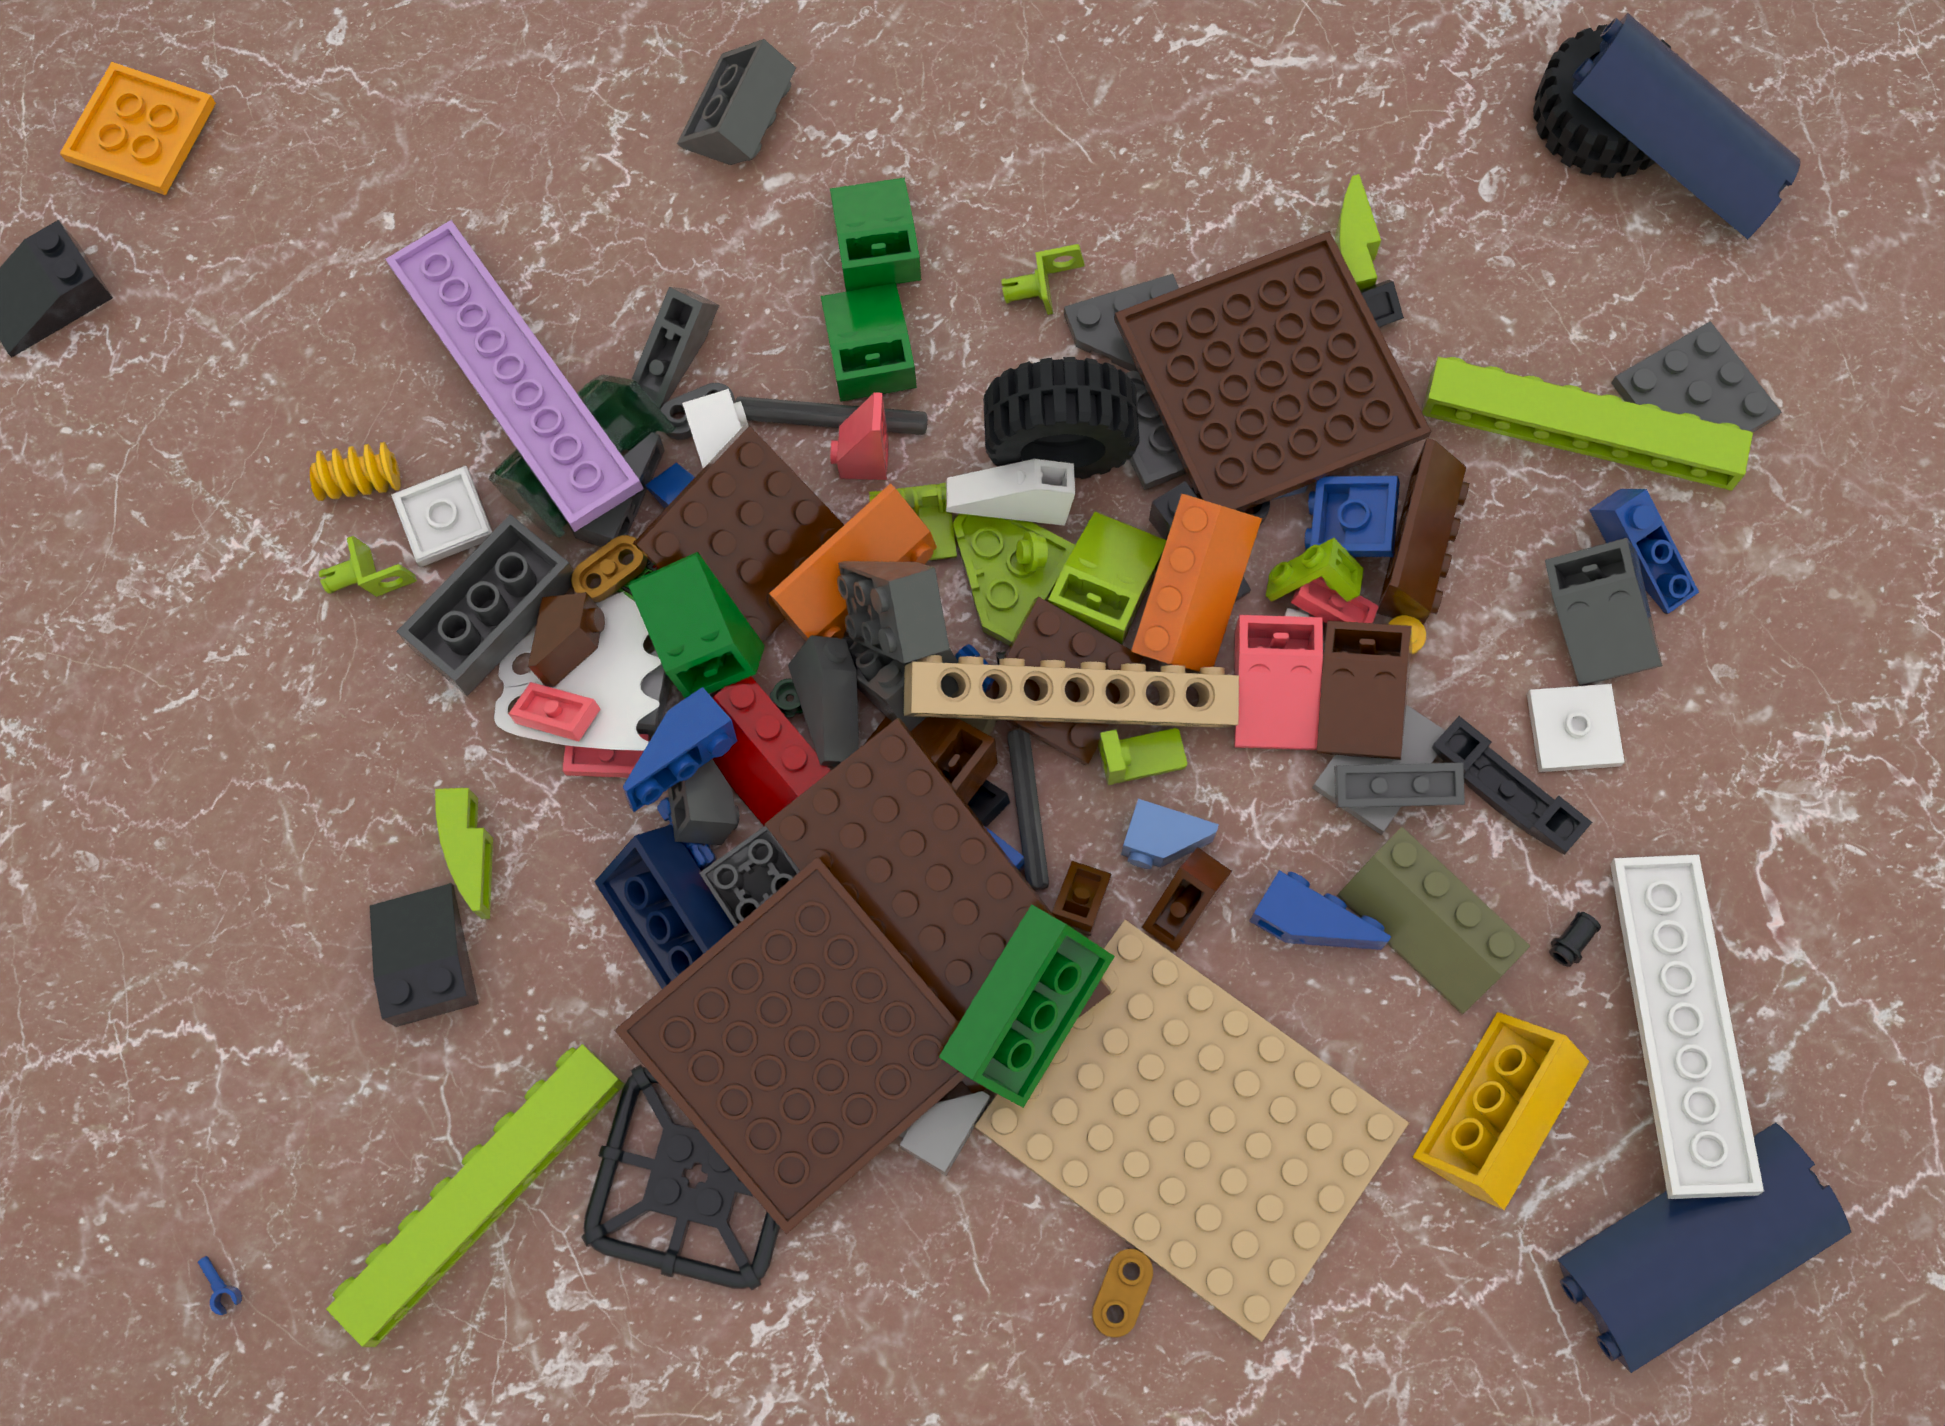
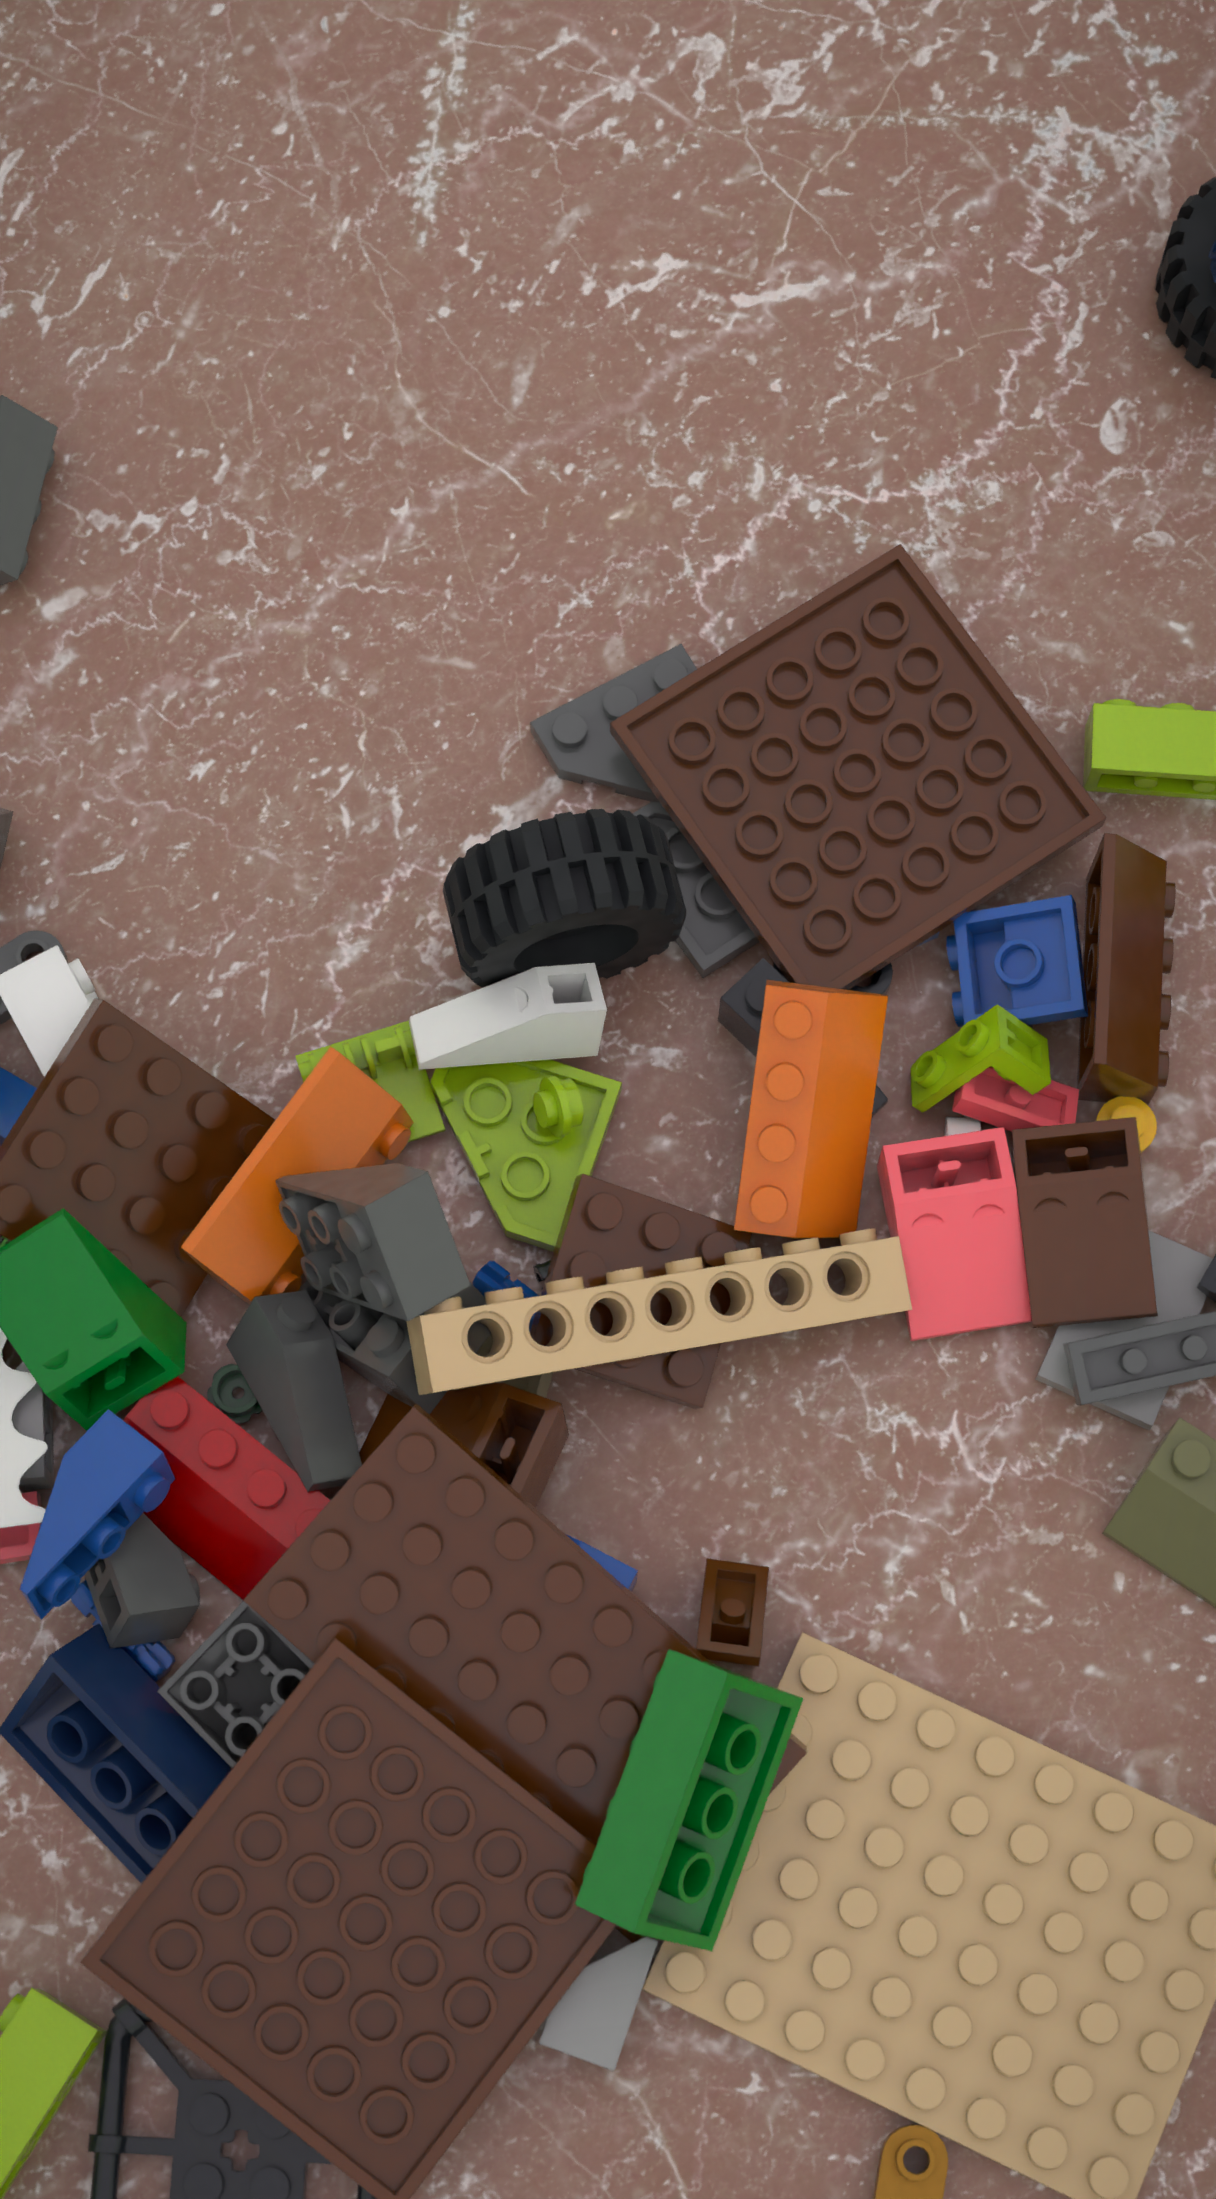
camera: 15 degrees left, 0 degrees up
(826, 414) = (218, 948): dark grey axle -> none
(863, 442) = (272, 986): coral slope -> none
(869, 342) = (249, 827): green slope -> none
(876, 234) = (227, 660): green slope -> none
(988, 802) = (567, 1497): black plate -> none
(1028, 809) = (627, 1494): dark grey axle -> none
(1038, 282) = (484, 694): lime bracket -> none
(1108, 575) = (676, 1118): lime slope -> none
(1141, 755) = (777, 1380): lime bracket -> none
(1164, 835) = (833, 1495): medium blue slope -> none
(1186, 898) = (887, 1584): reddish brown slope -> none
(1306, 917) = (1063, 1576): blue slope -> none
(1358, 234) = (941, 540): lime slope -> none
(1383, 302) = (997, 634): black plate -> none

